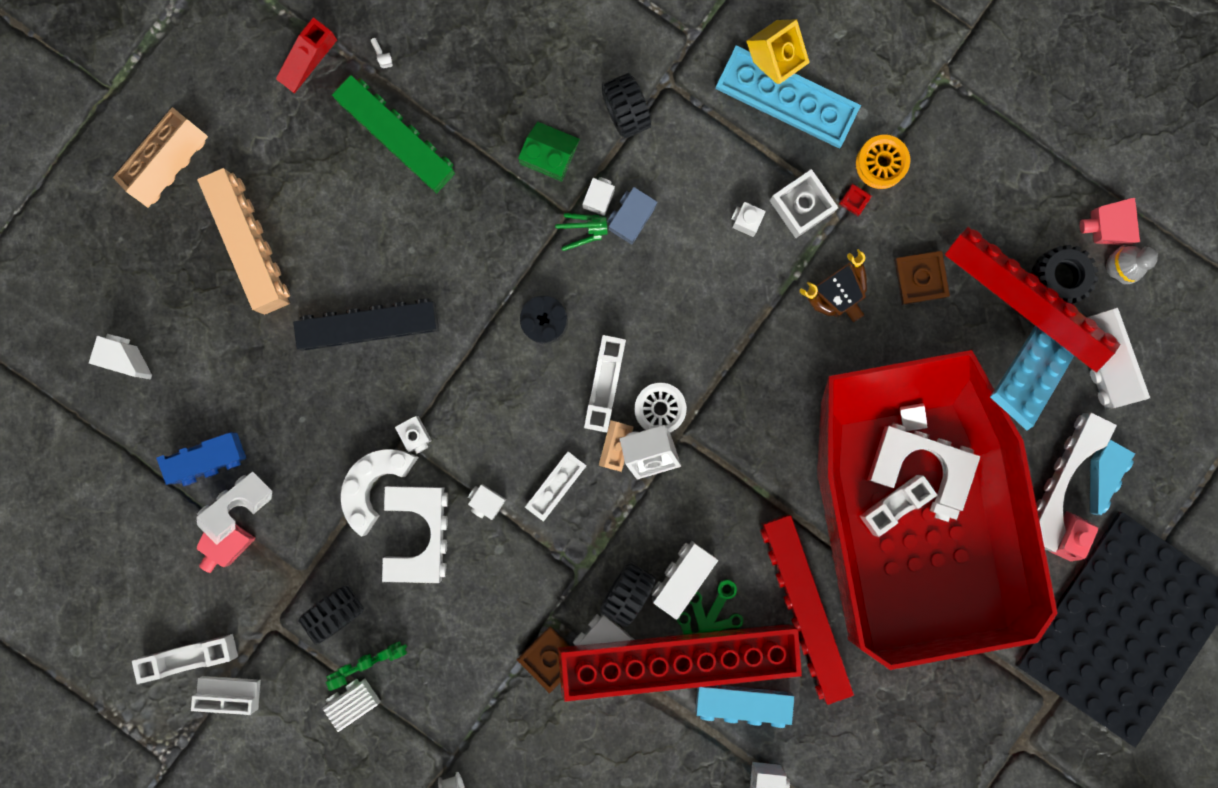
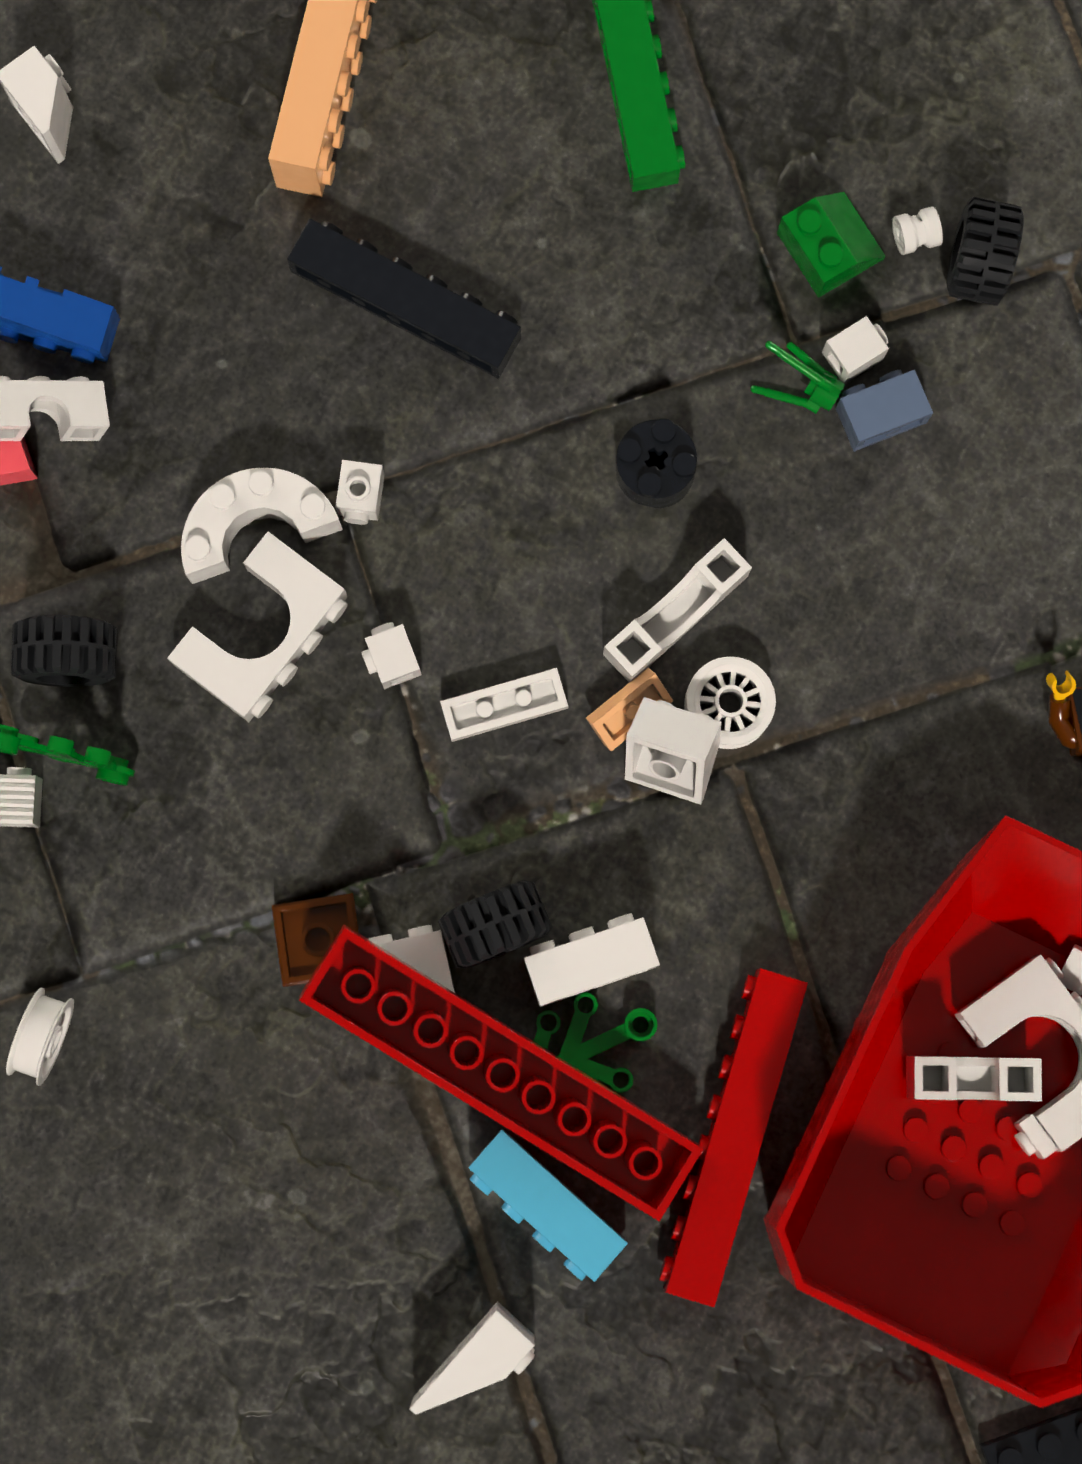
camera: 35 degrees right, 5 degrees down
(586, 116) = (917, 230): none -> white wheel
(747, 218) = (1044, 527): white brick -> none

